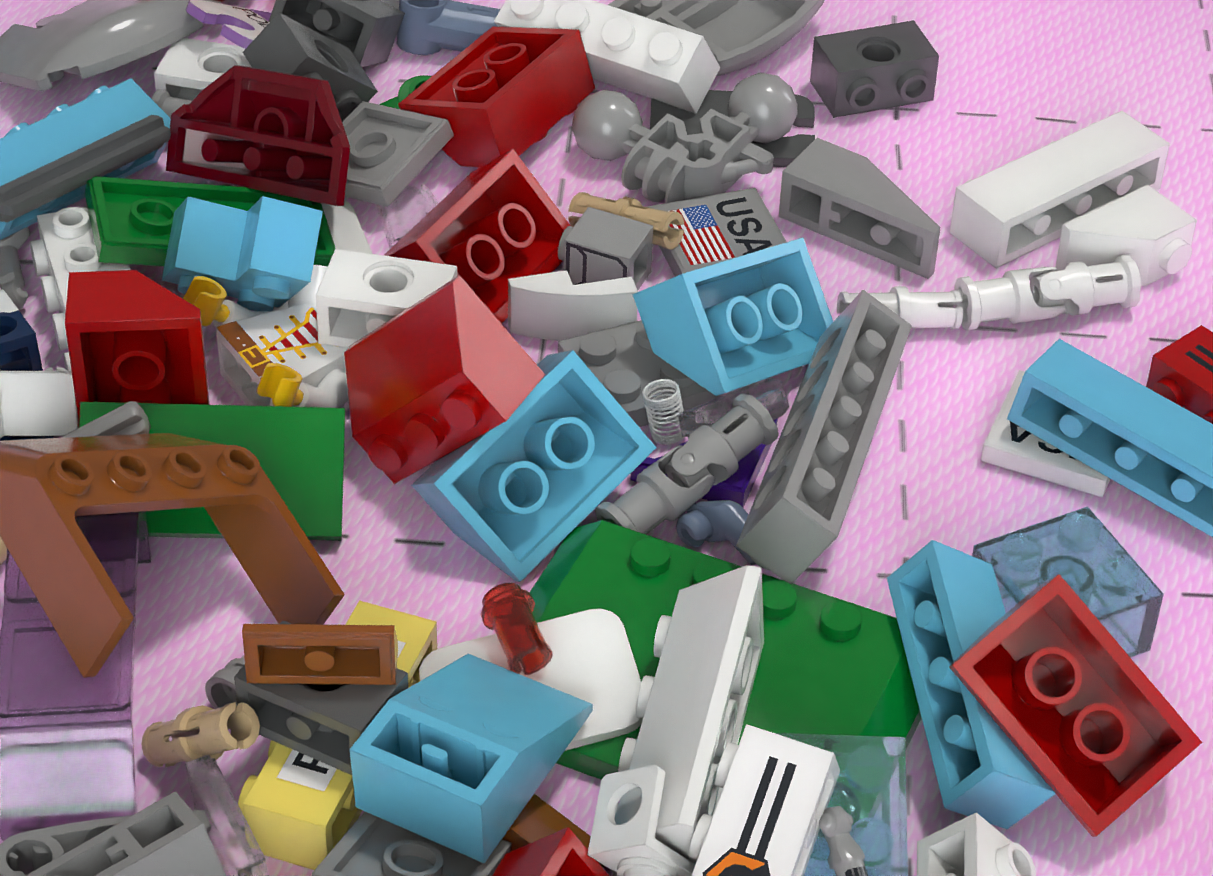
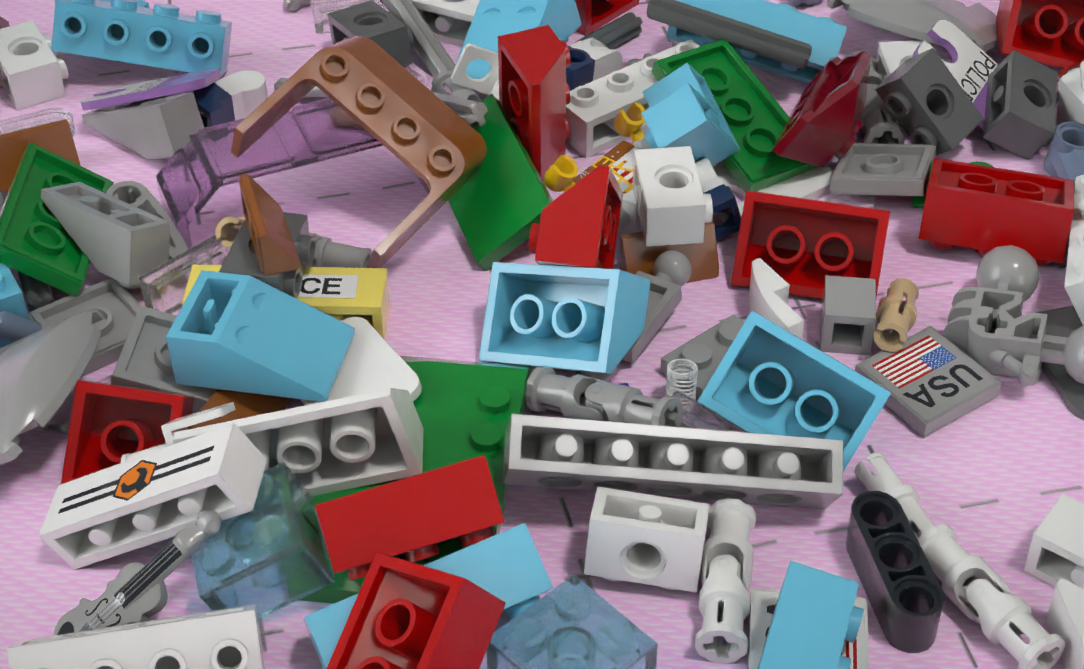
camera: 75 degrees right, 0 degrees up
(509, 613) = (379, 339): clear red pin -> none
(849, 641) = (410, 516): none -> red slope
(857, 206) = (1022, 443): light grey slope -> none
(914, 488) = (669, 527): none -> white brick
(977, 459) = (726, 581): none -> white piece
(987, 334) = (894, 572): none -> black beam

